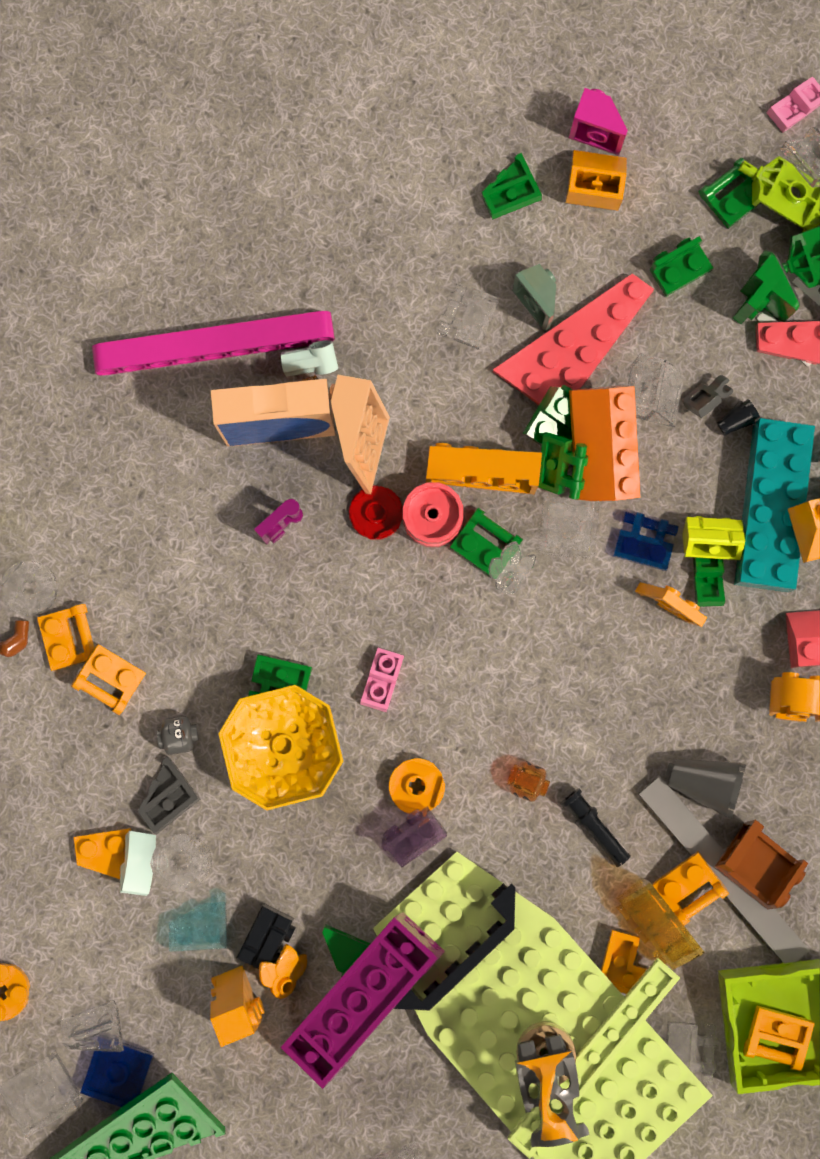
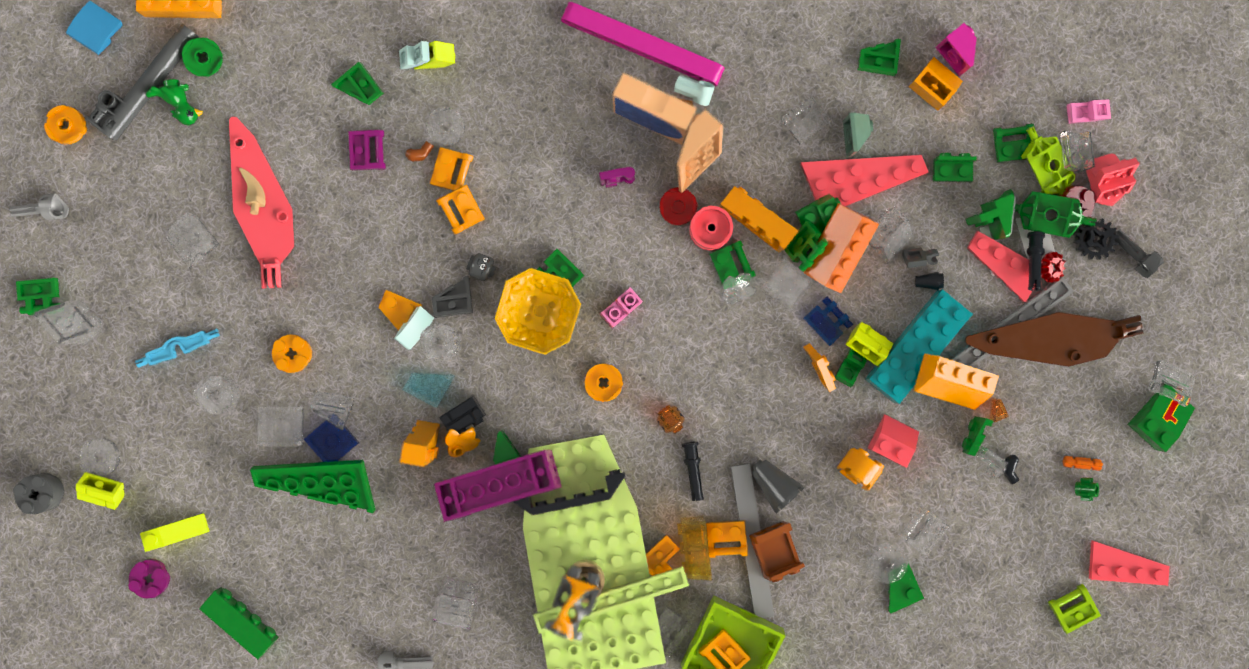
camera: 30 degrees right, 5 degrees up
(413, 836) = (584, 410): clear purple bracket -> none

